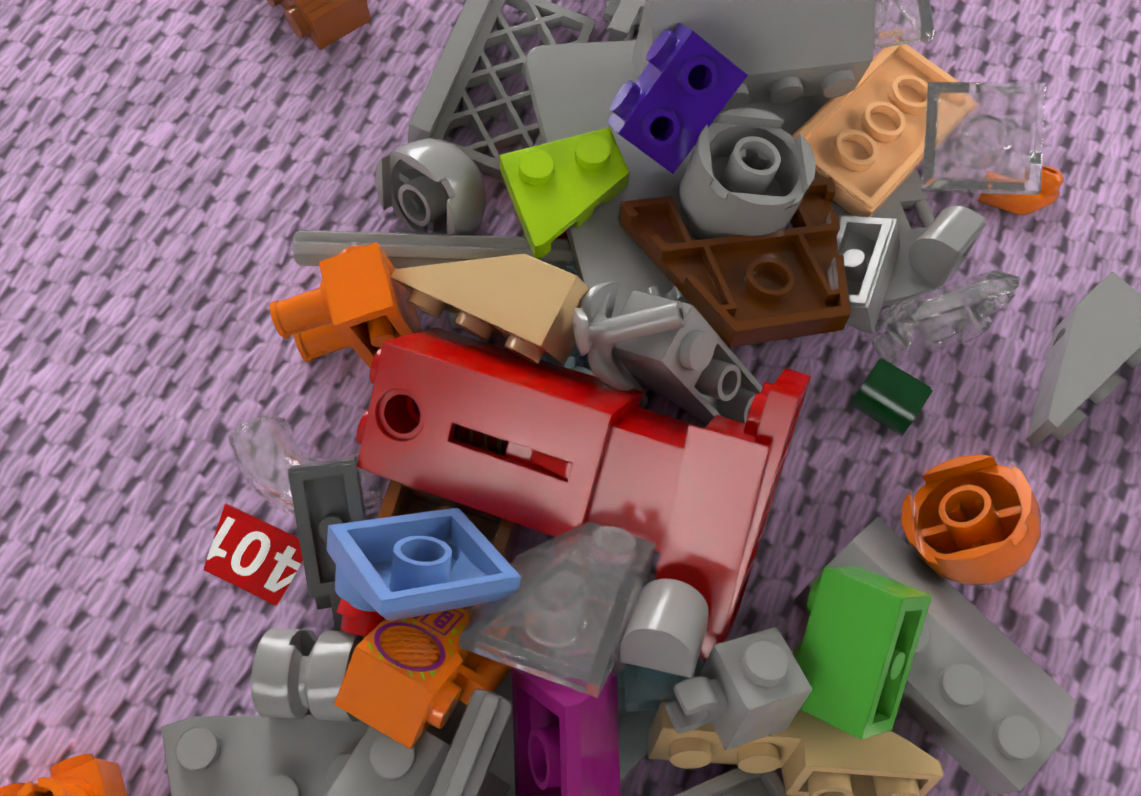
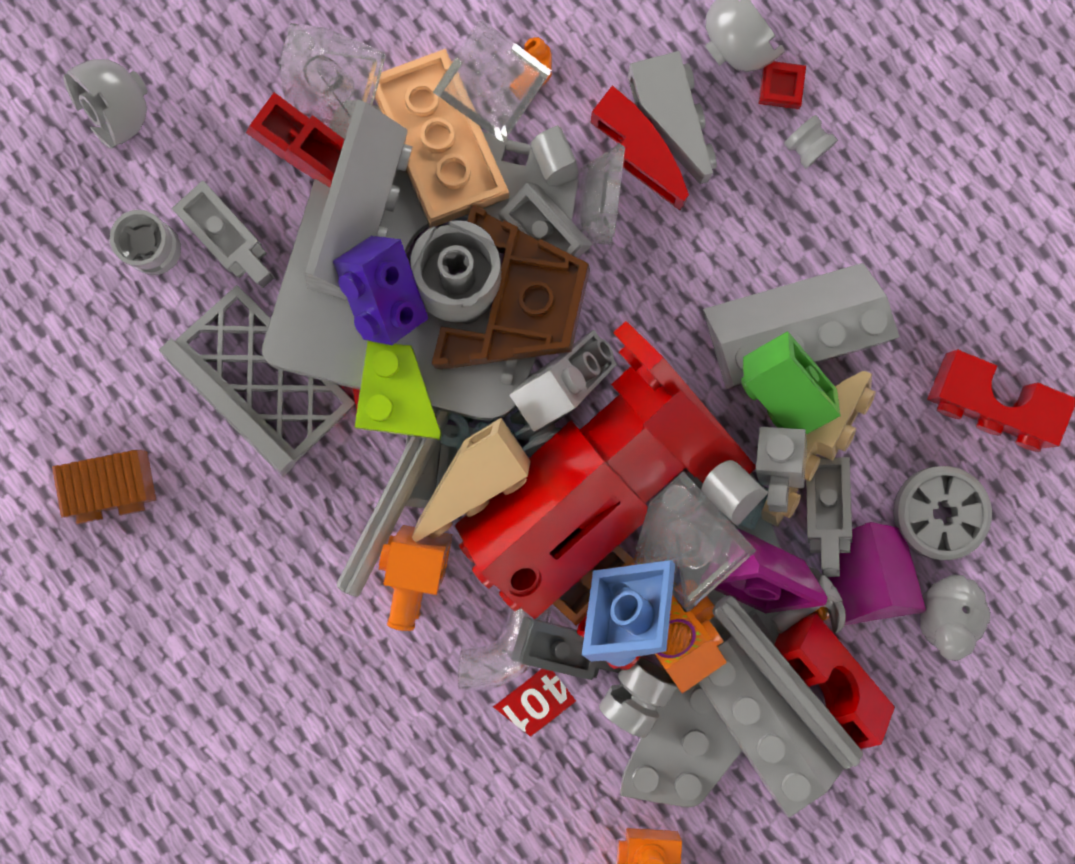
camera: 65 degrees left, 20 degrees up
(432, 184) = (333, 479): light grey cylinder -> none
(598, 332) = (534, 434): light grey plant -> none
(891, 396) = (636, 257): dark green brick -> none
(973, 520) = (741, 263): orange cylinder -> none
(1022, 337) = (645, 150): none -> red slope

